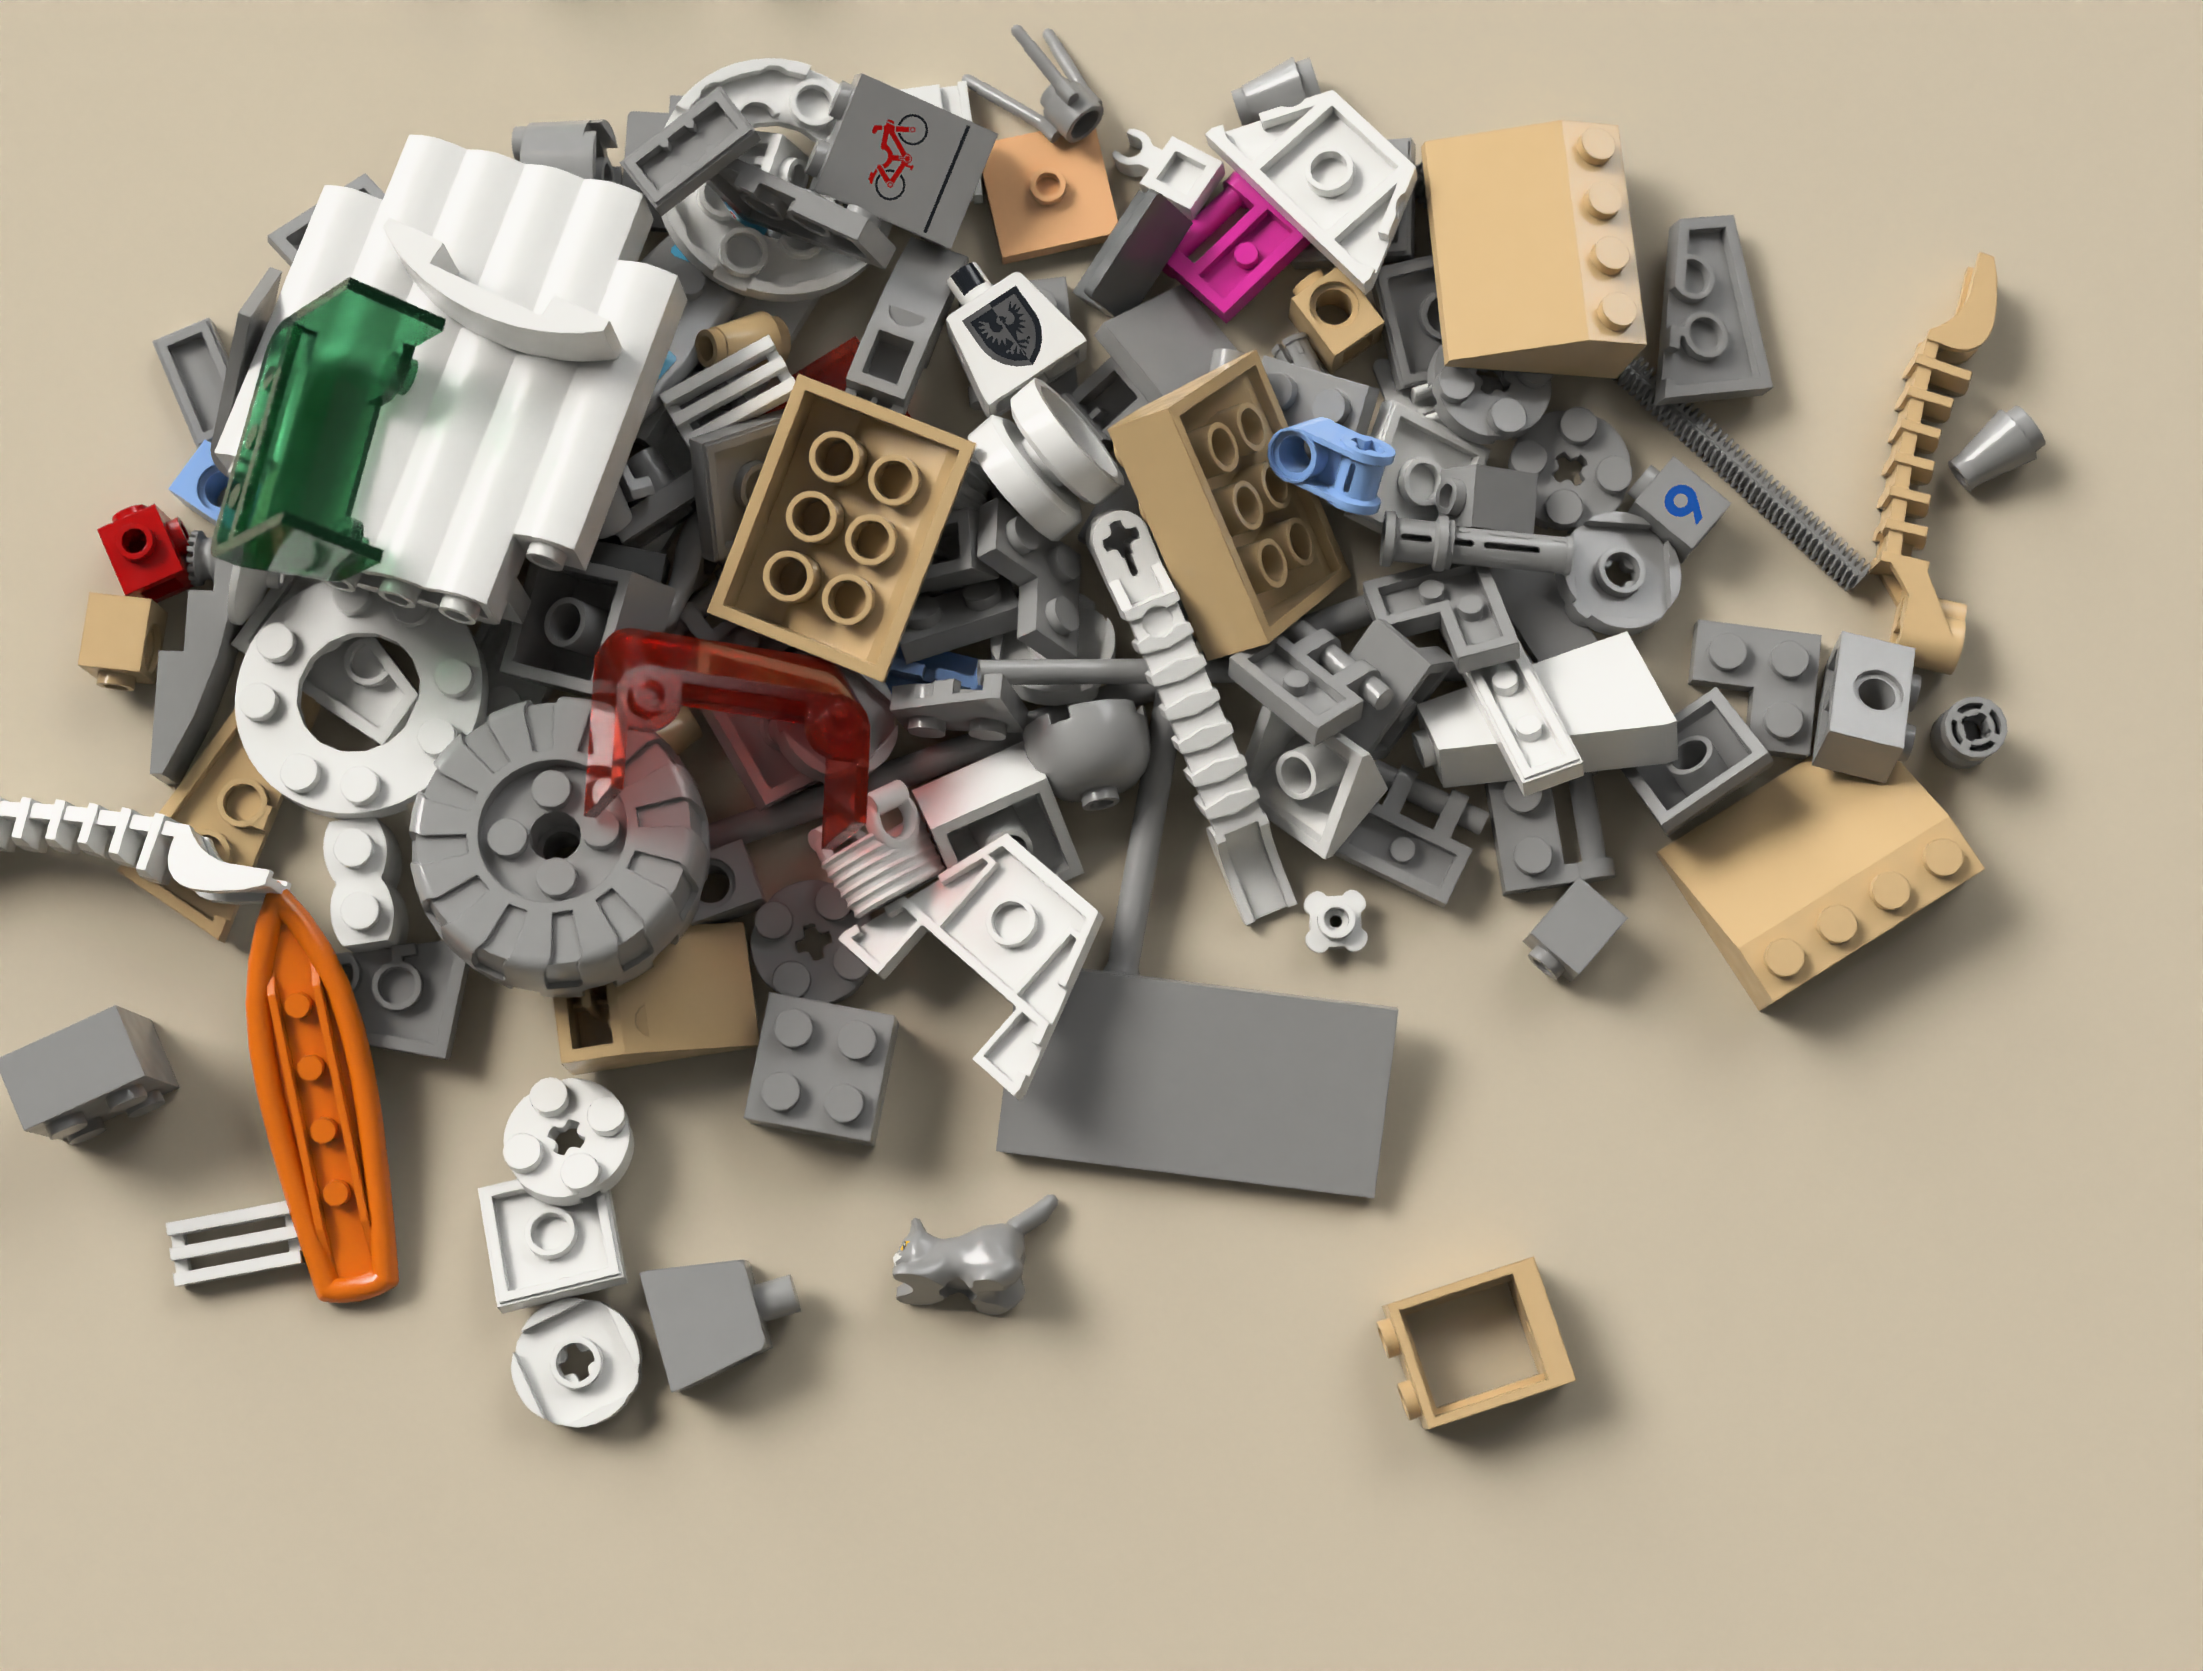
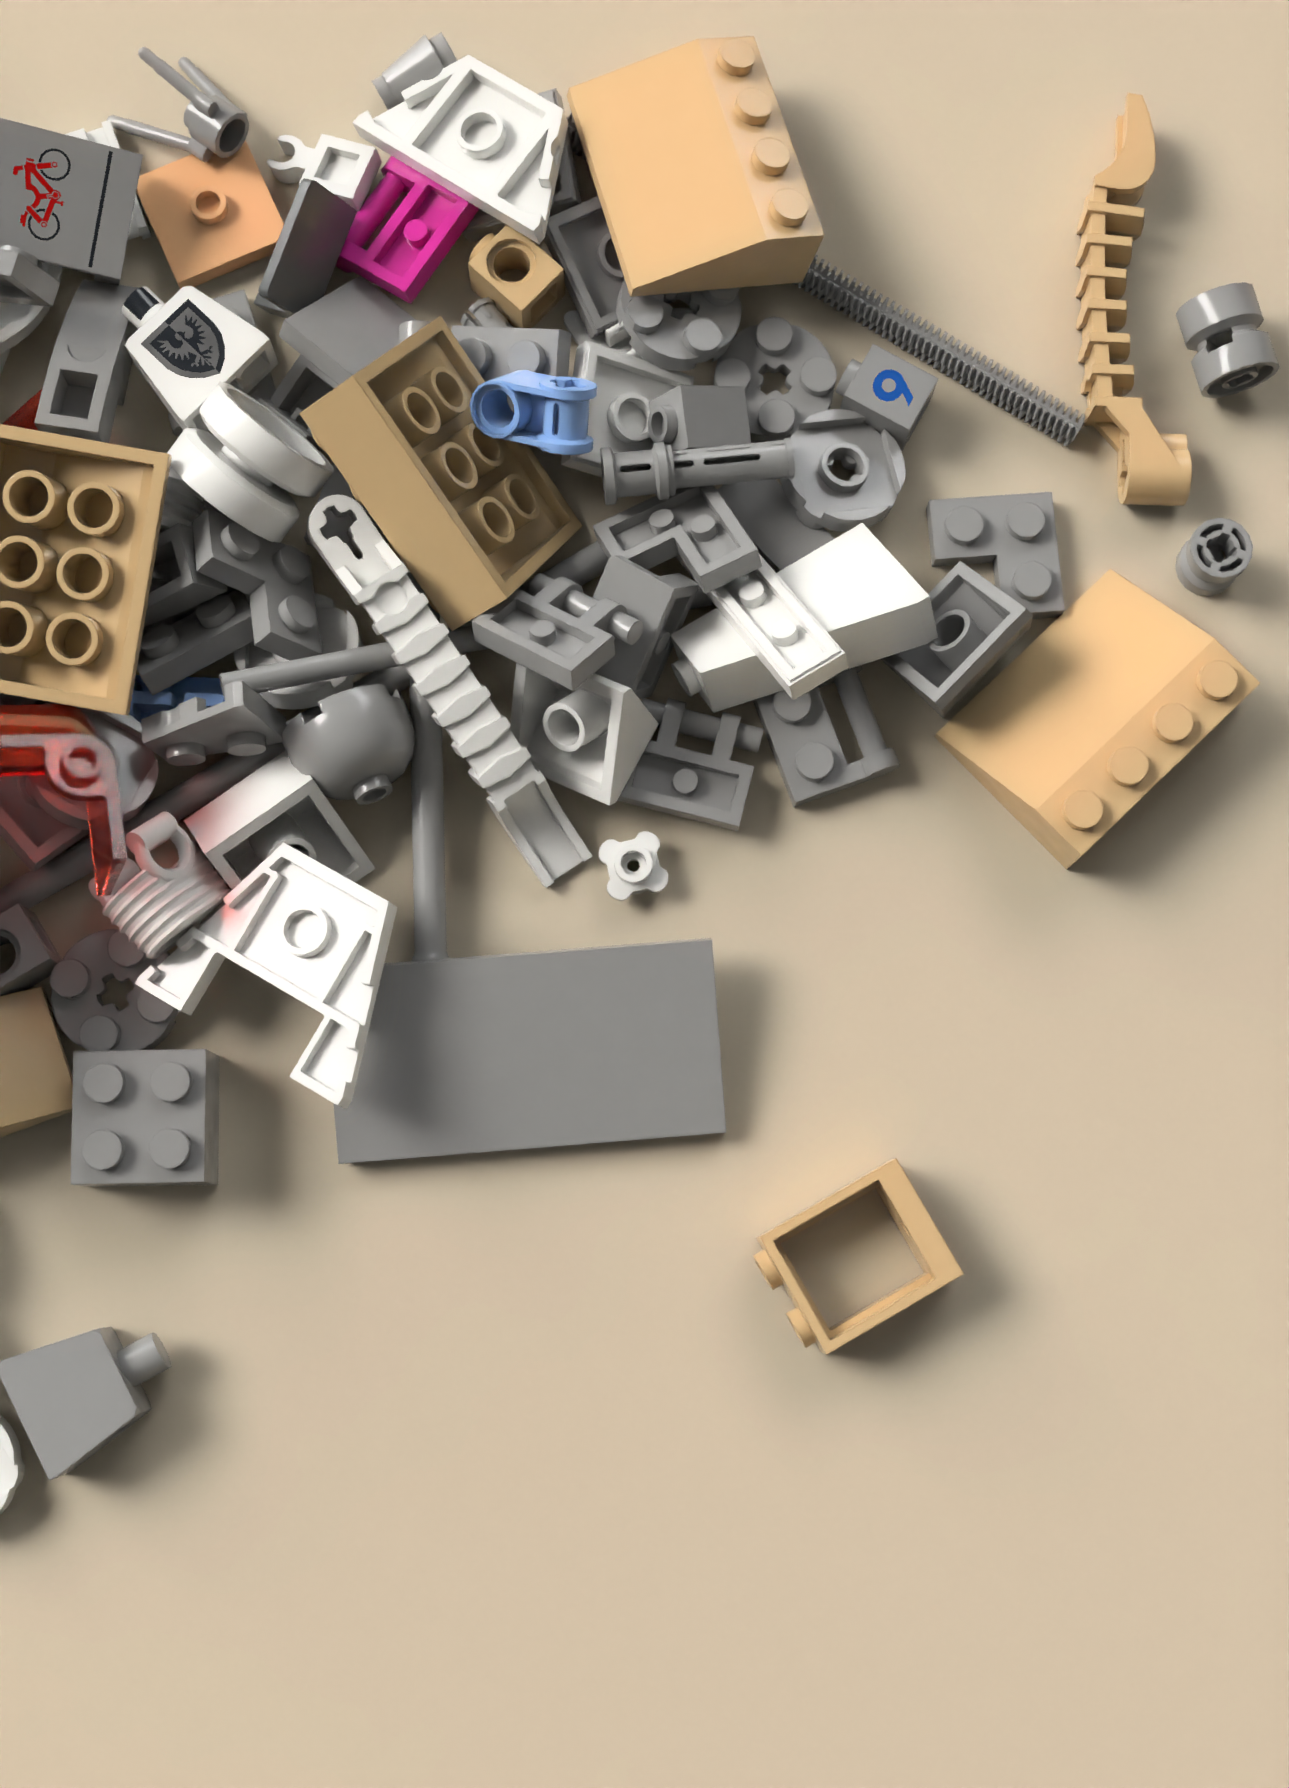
camera: 15 degrees left, 0 degrees up
(979, 1264) = (342, 1281): light grey animal -> none
(1573, 931) = (869, 827): light grey brick -> none
(1708, 318) = (879, 208): light grey wing -> none
(1866, 707) = (1110, 551): light grey brick -> none
(1999, 447) = (1189, 271): light grey cone -> none
(2031, 498) = (1225, 334): none -> light grey wheel

